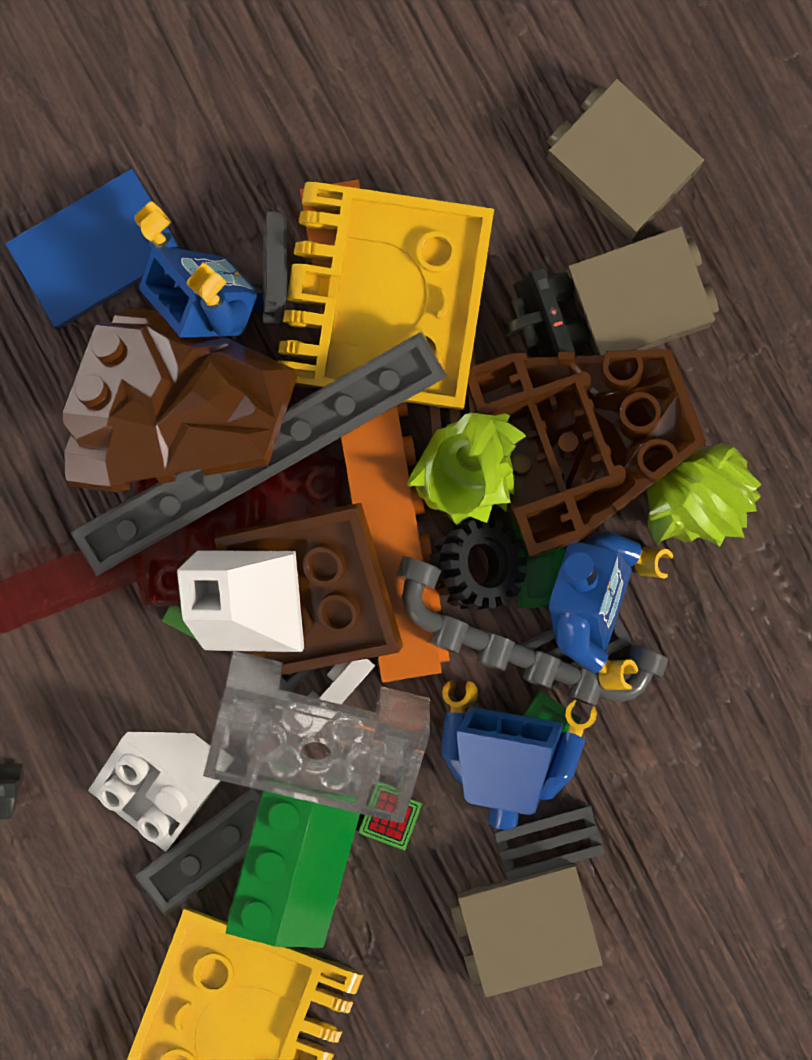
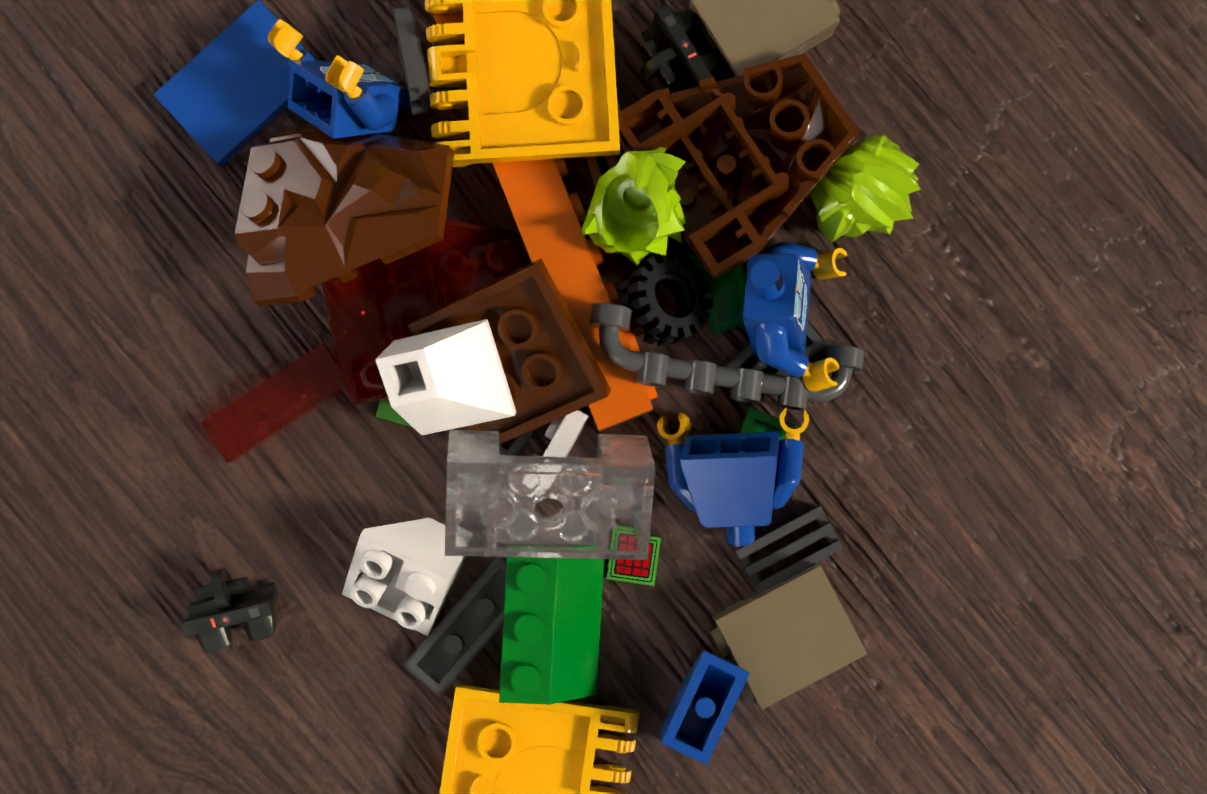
camera: 10 degrees left, 0 degrees up
(304, 430) = (471, 203): dark grey tile -> none
(427, 981) = (702, 707): none -> blue slope

